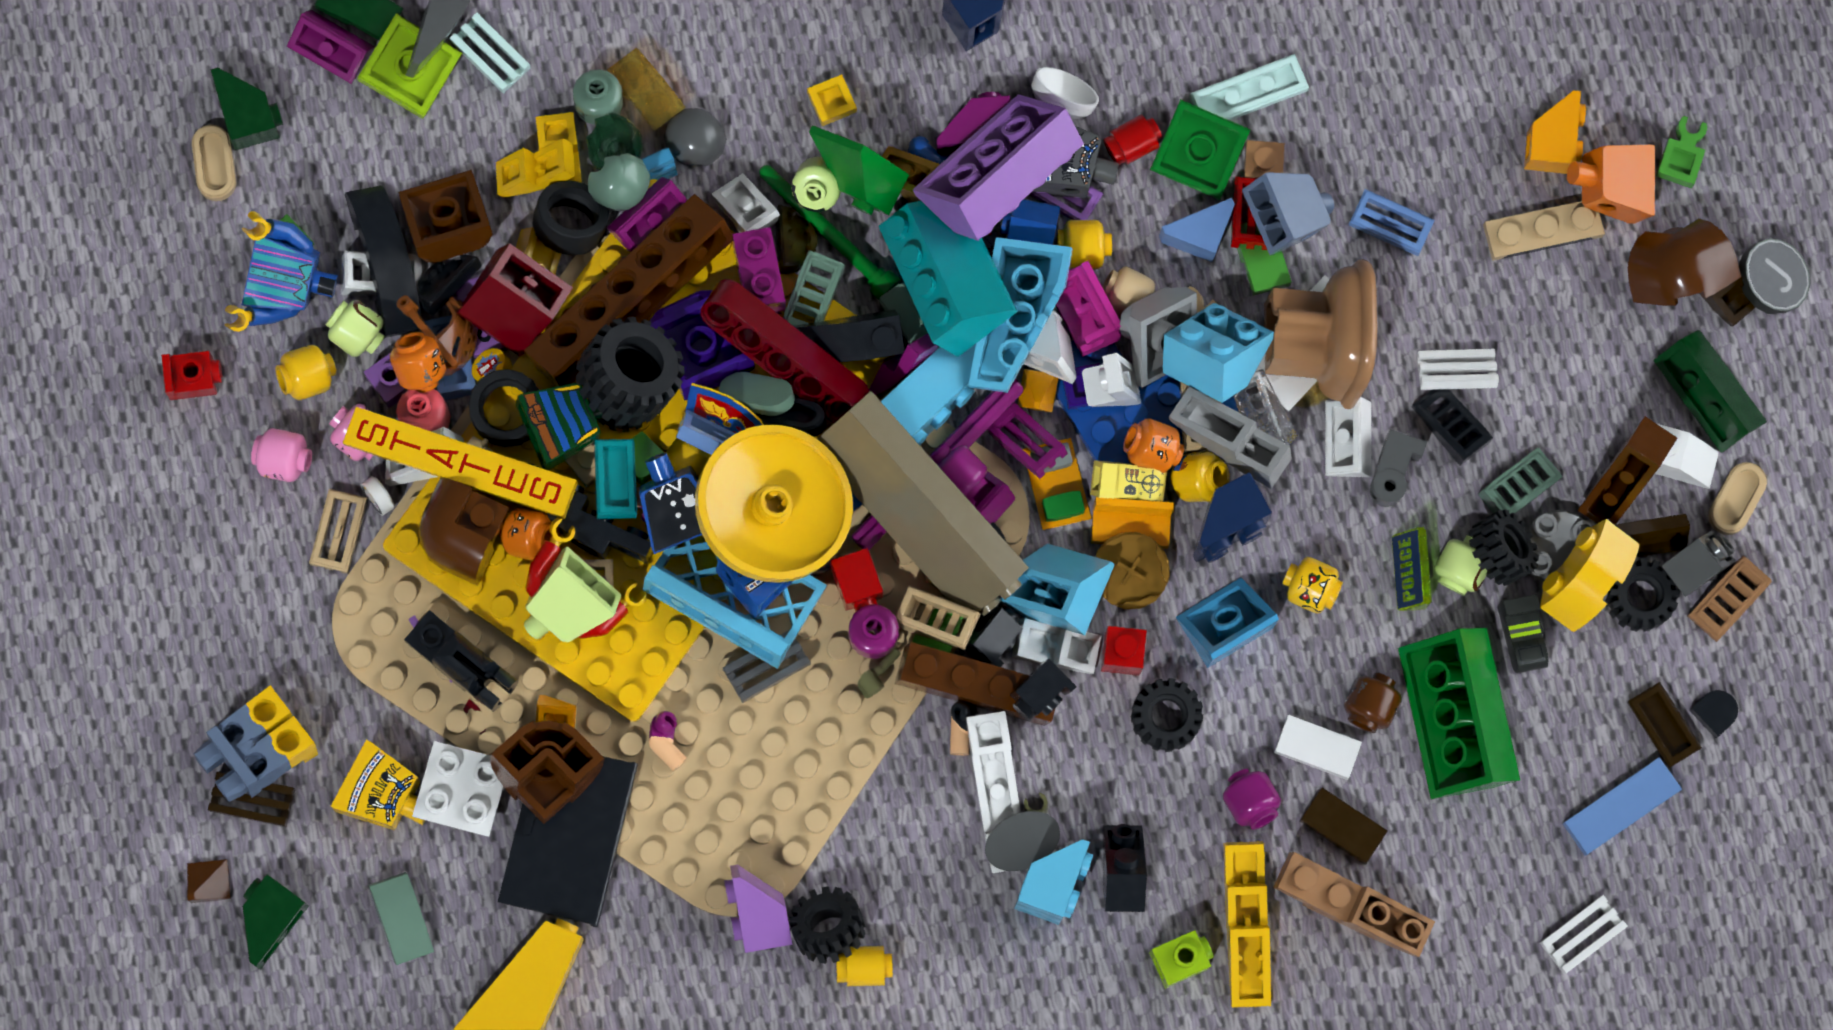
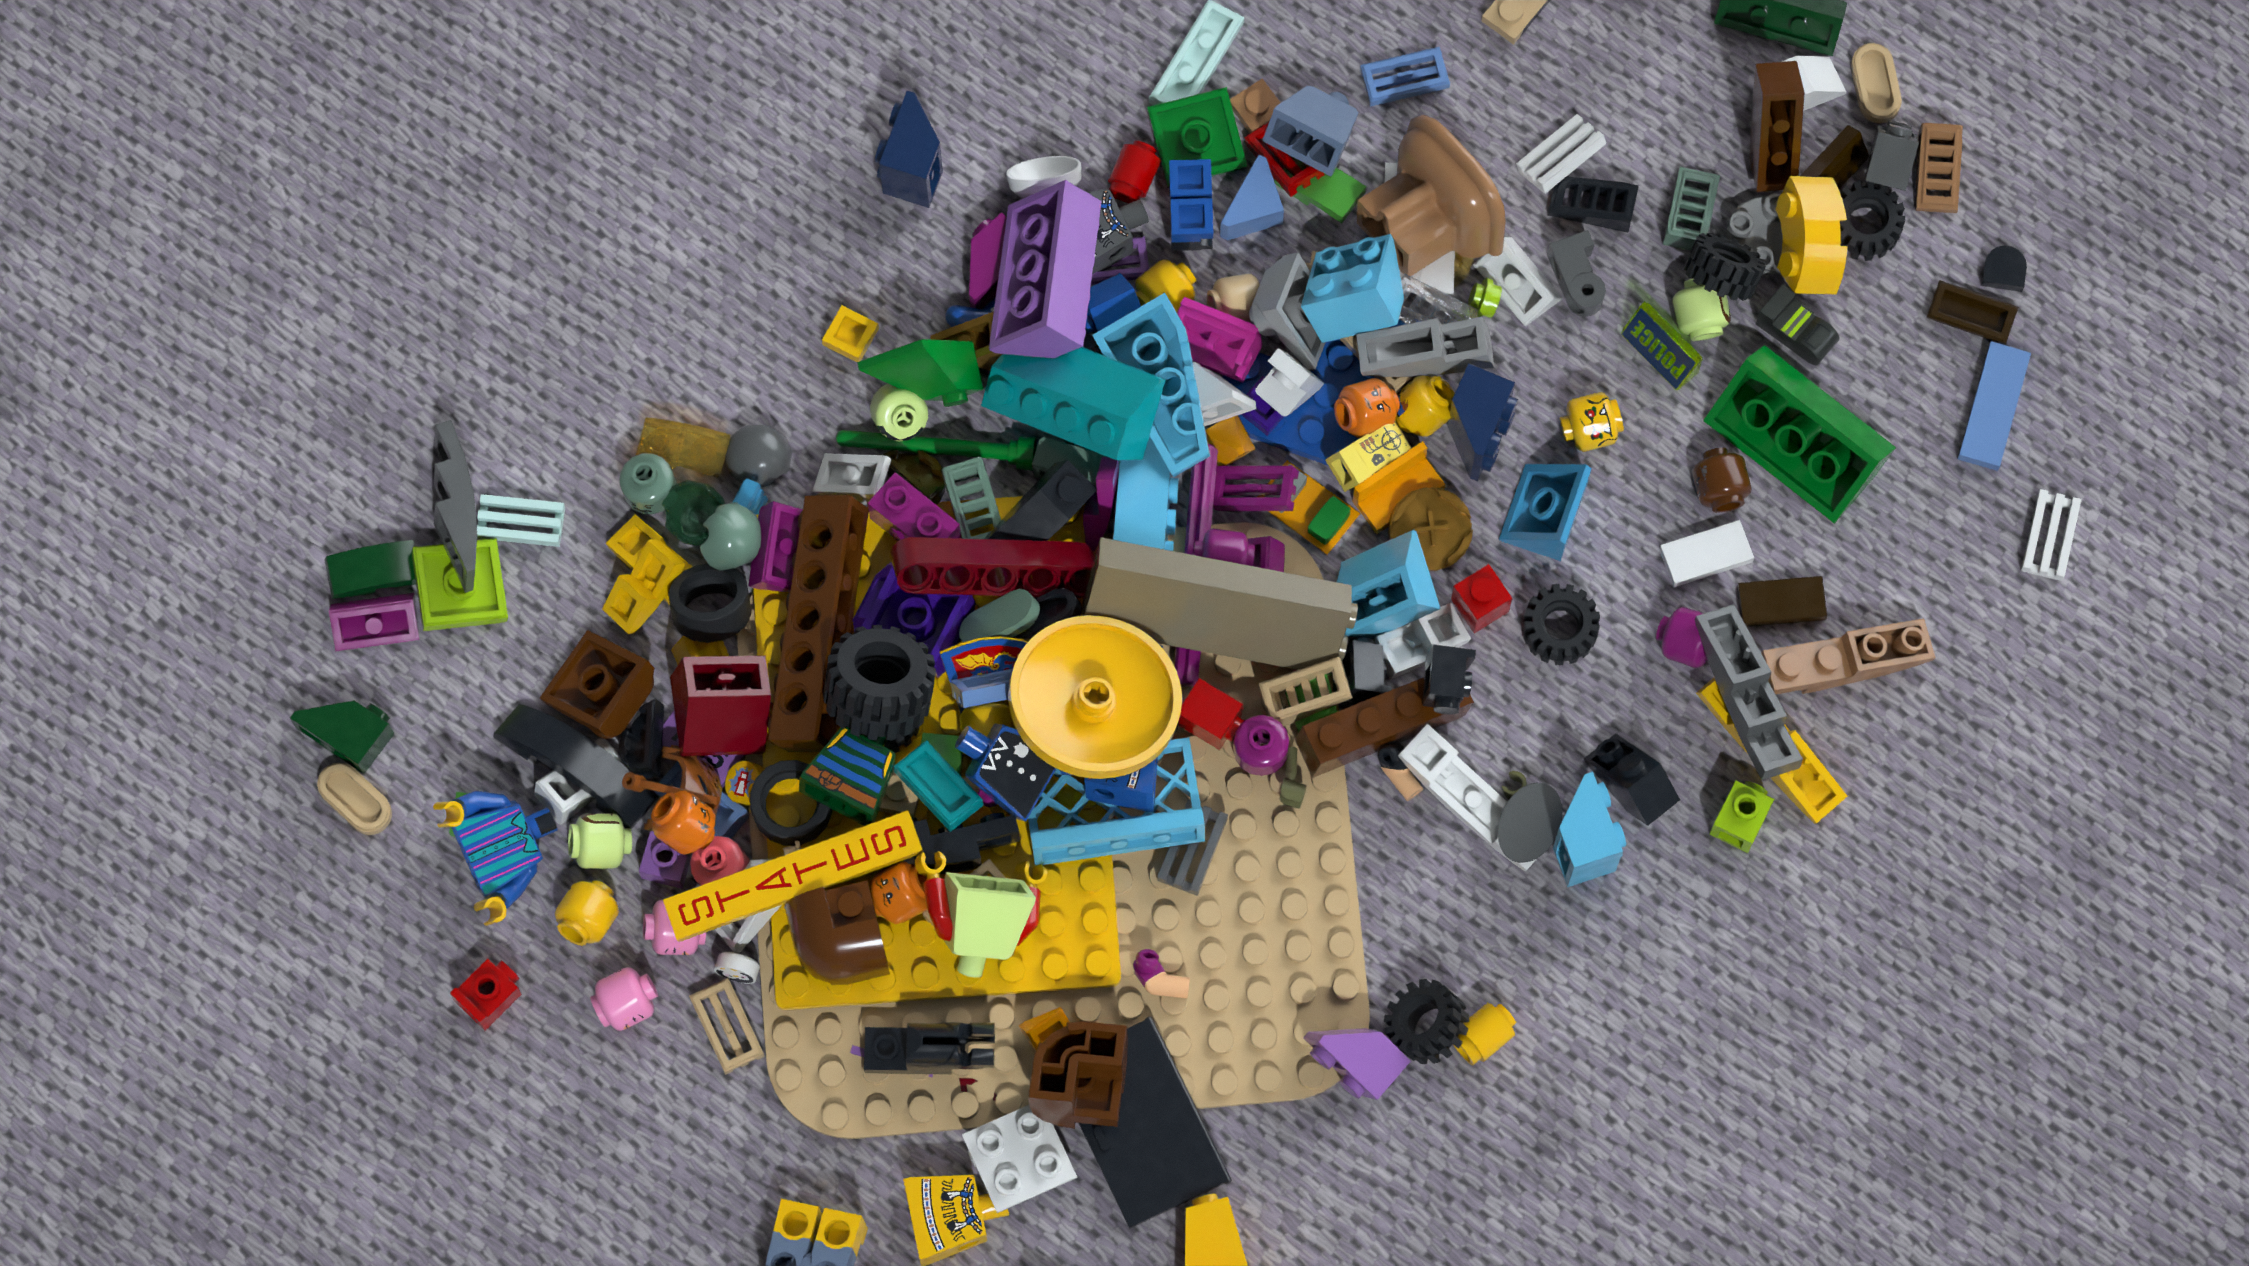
camera: 30 degrees left, 5 degrees down
(1150, 196) = (1191, 204): none -> blue hips
(1256, 872) = (1745, 688): none -> dark grey slope
(1311, 432) = (1485, 297): none -> lime plate

